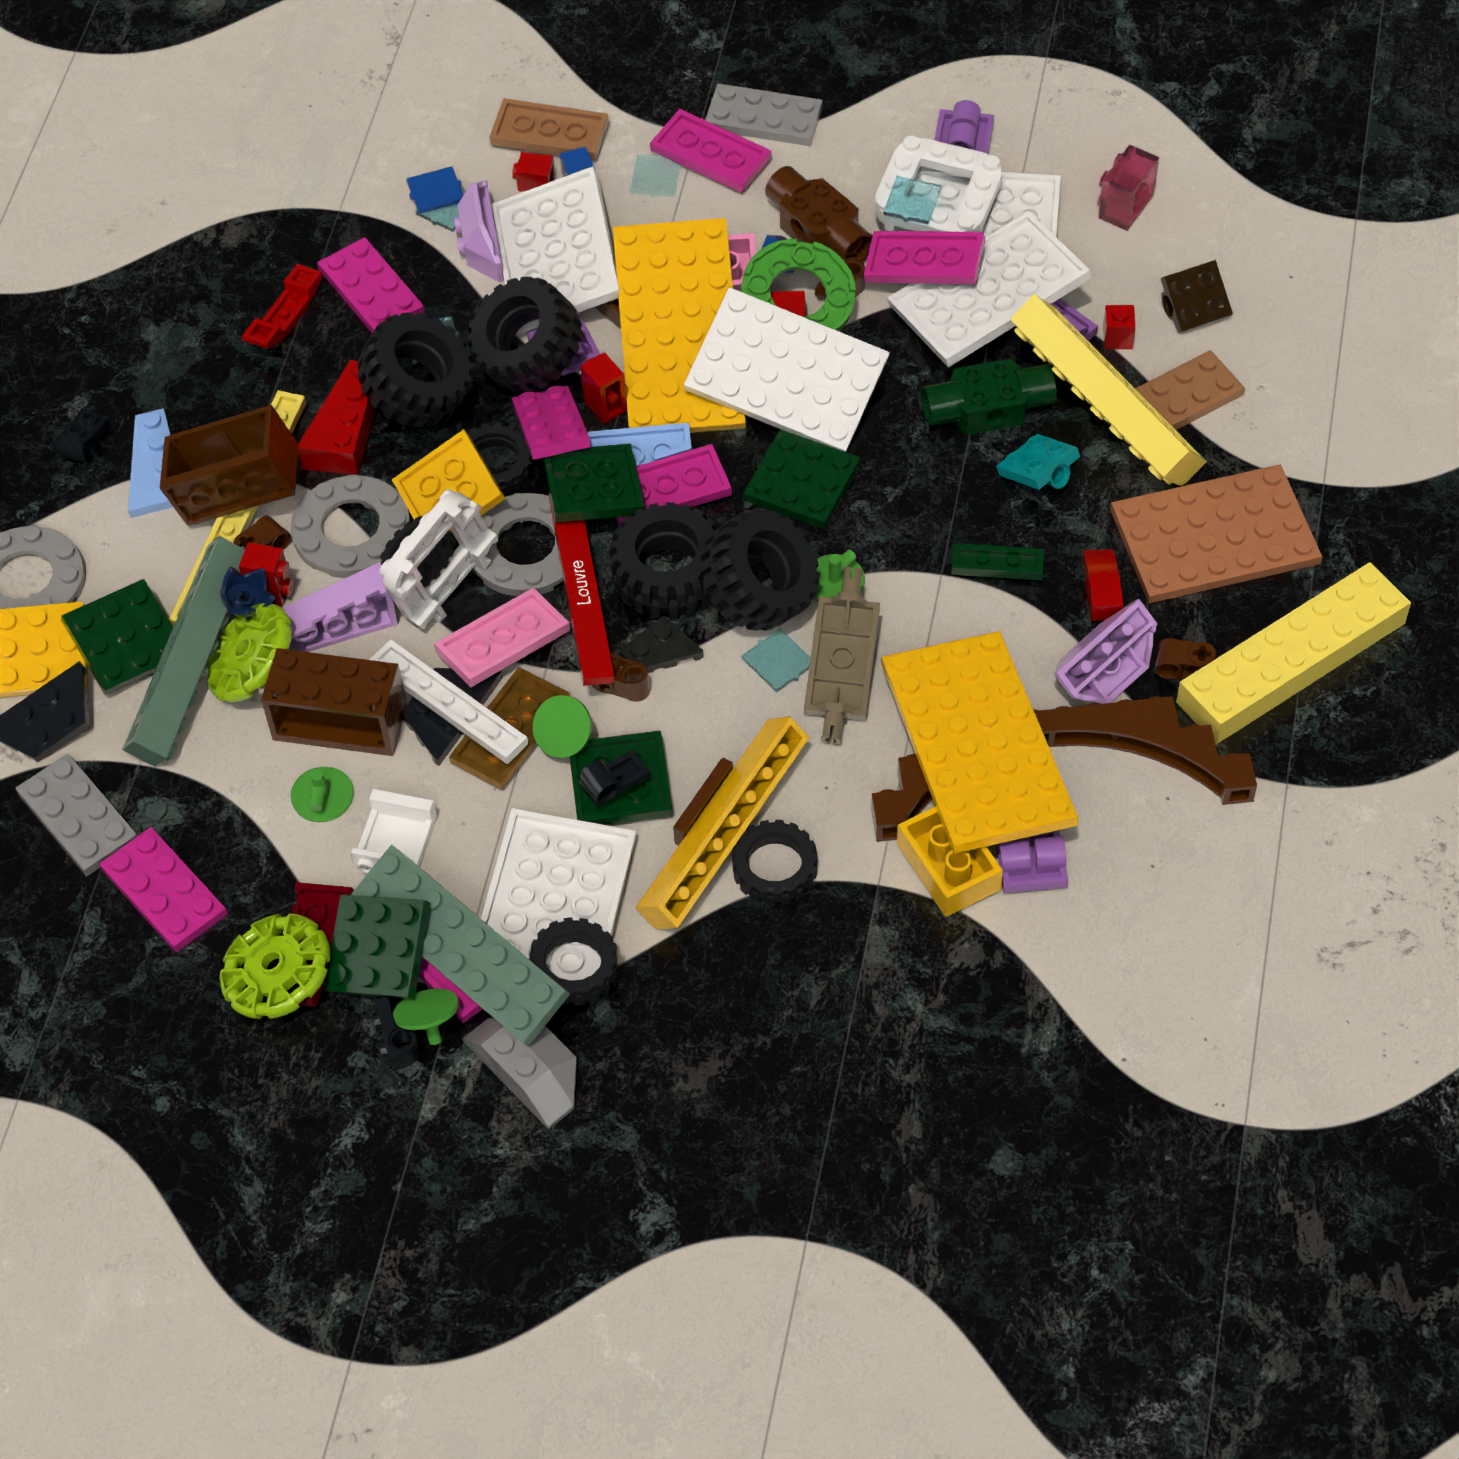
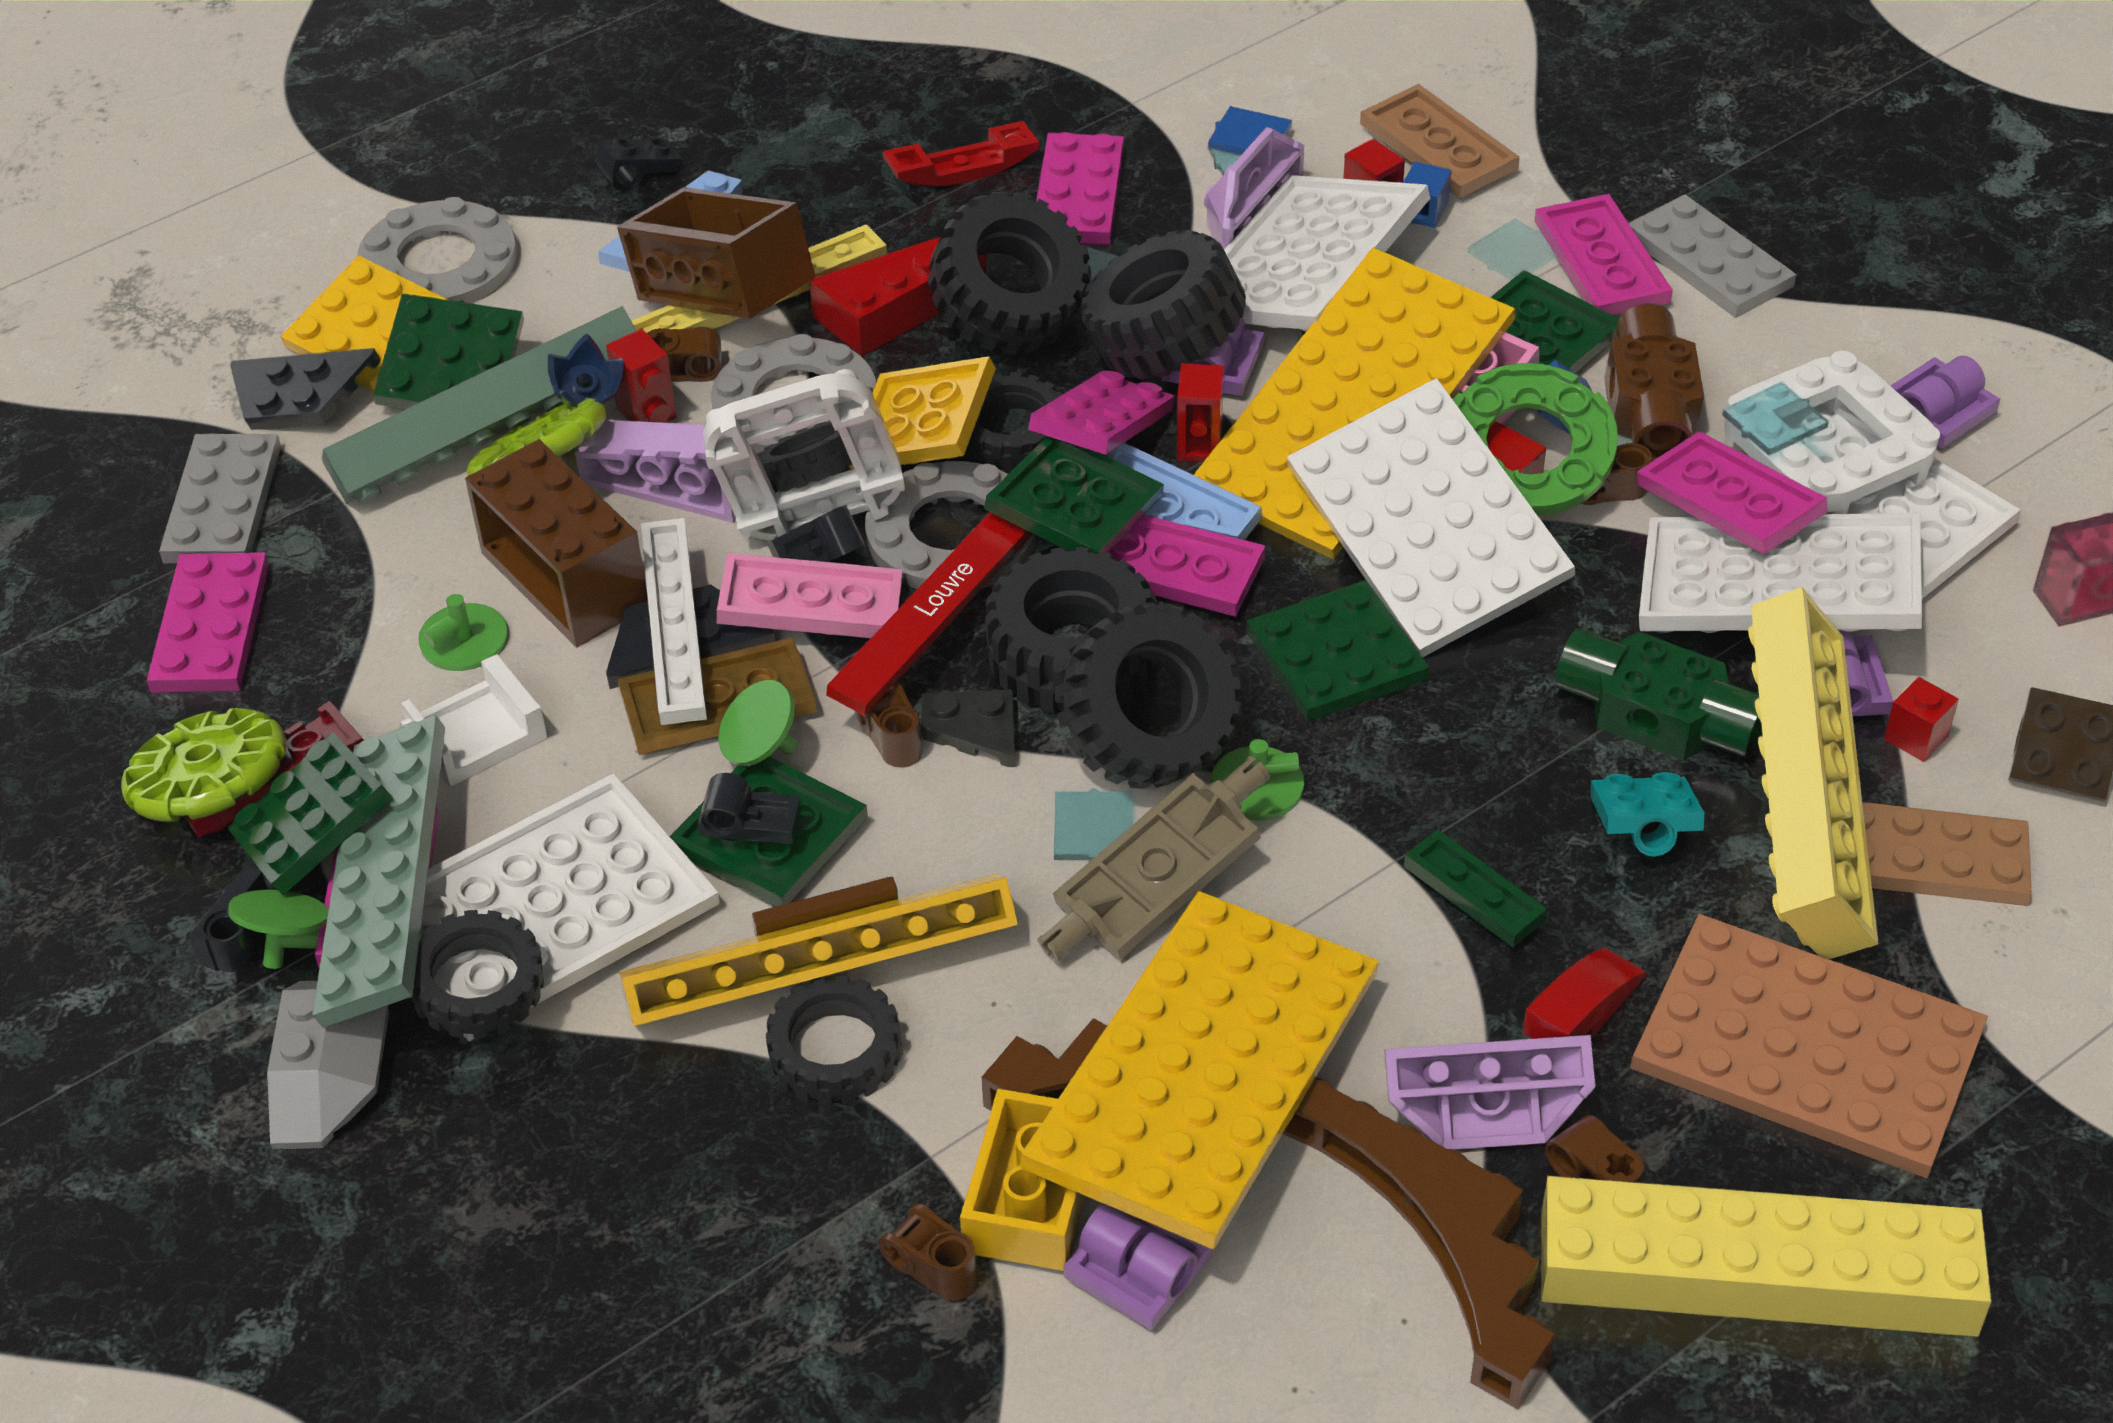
camera: 40 degrees right, 10 degrees down
(469, 600) = (820, 538): none -> black plate
(738, 204) = (1556, 321): none -> dark green plate
(933, 927) = (926, 1247): none -> reddish brown piece

